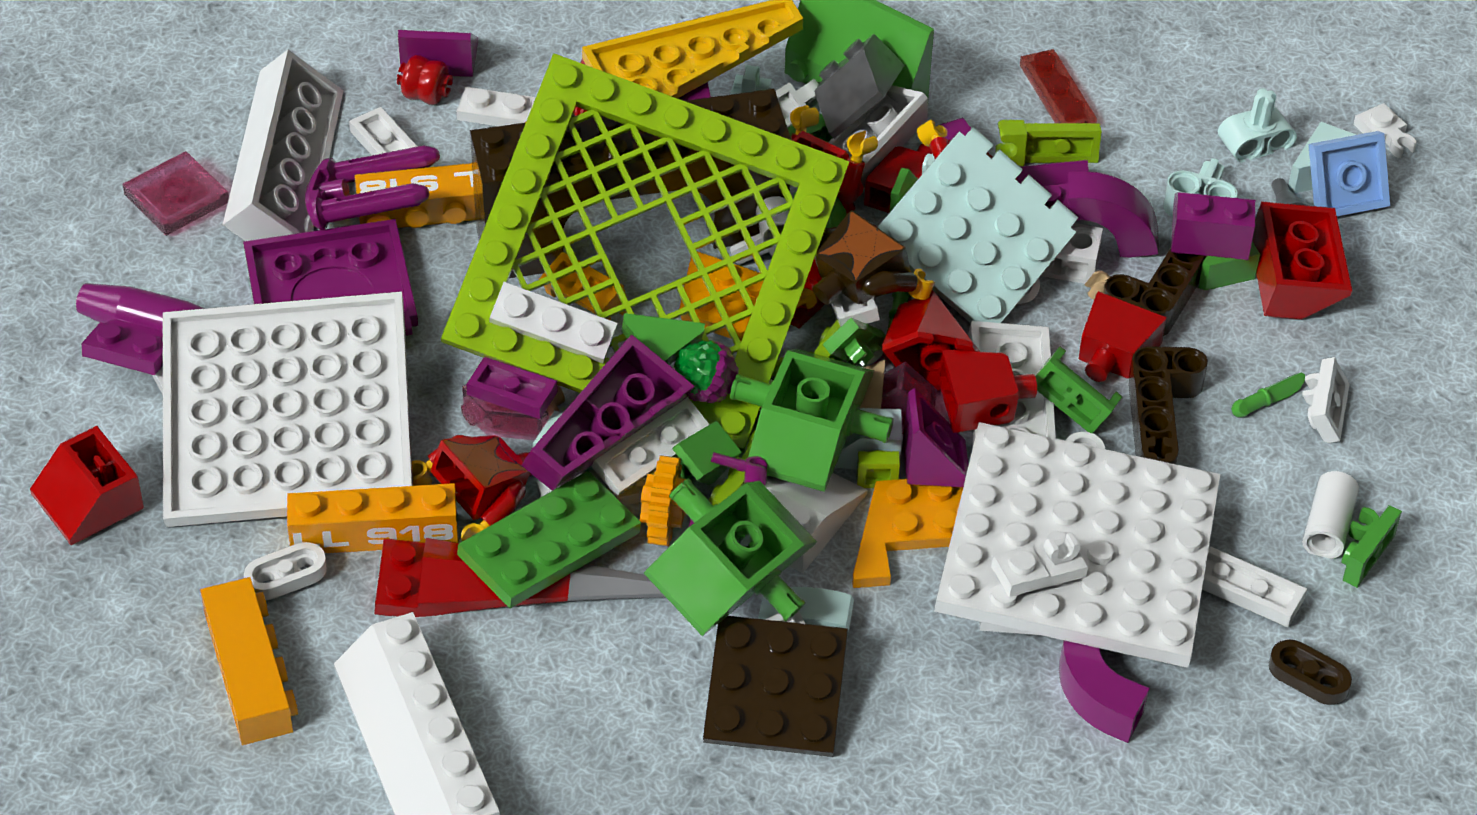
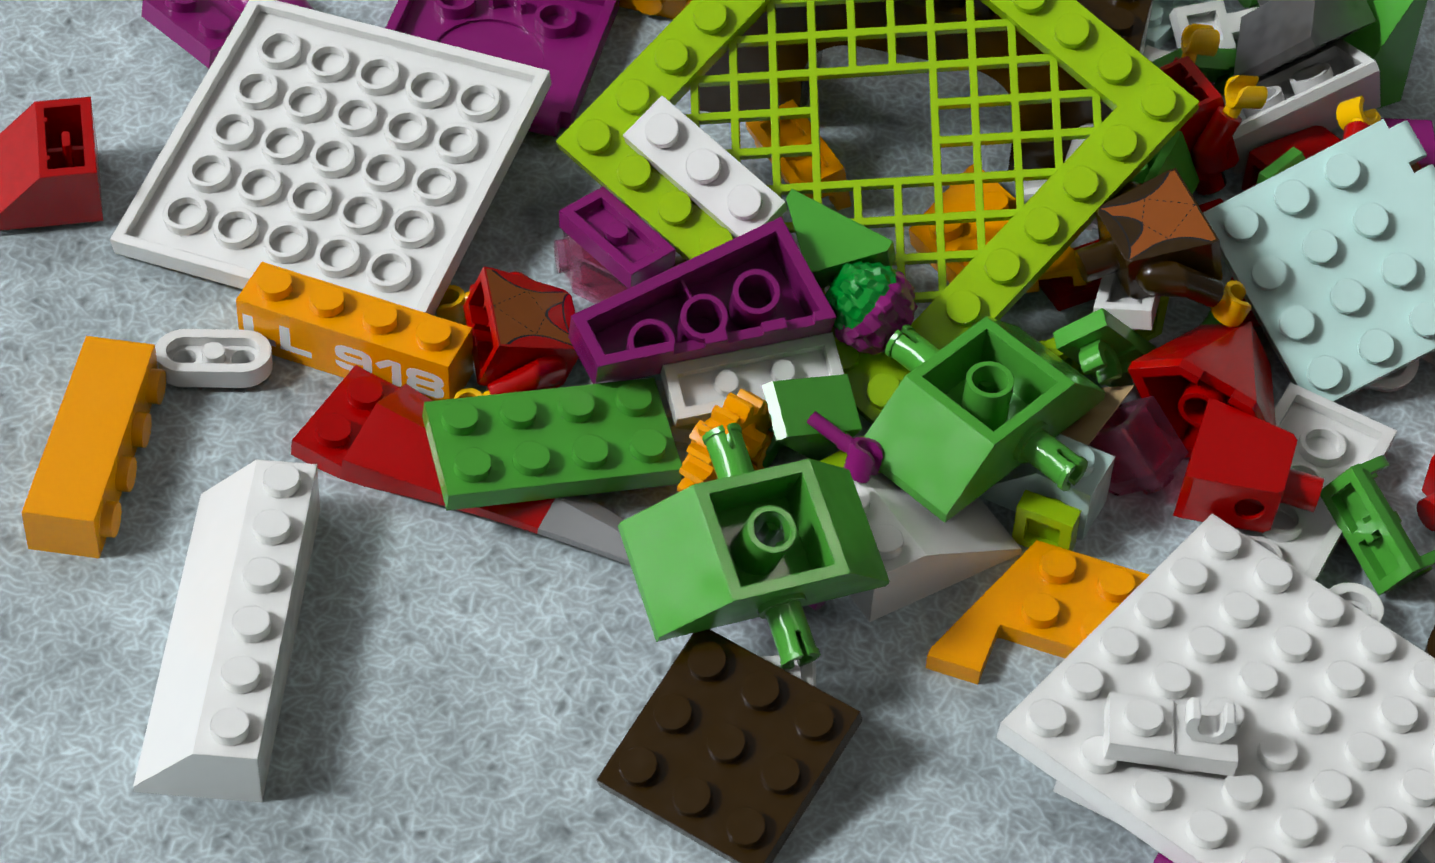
camera: 25 degrees right, 0 degrees up
(821, 608) = (854, 672): light aqua slope -> none
(930, 447) = (1131, 518): magenta slope -> none

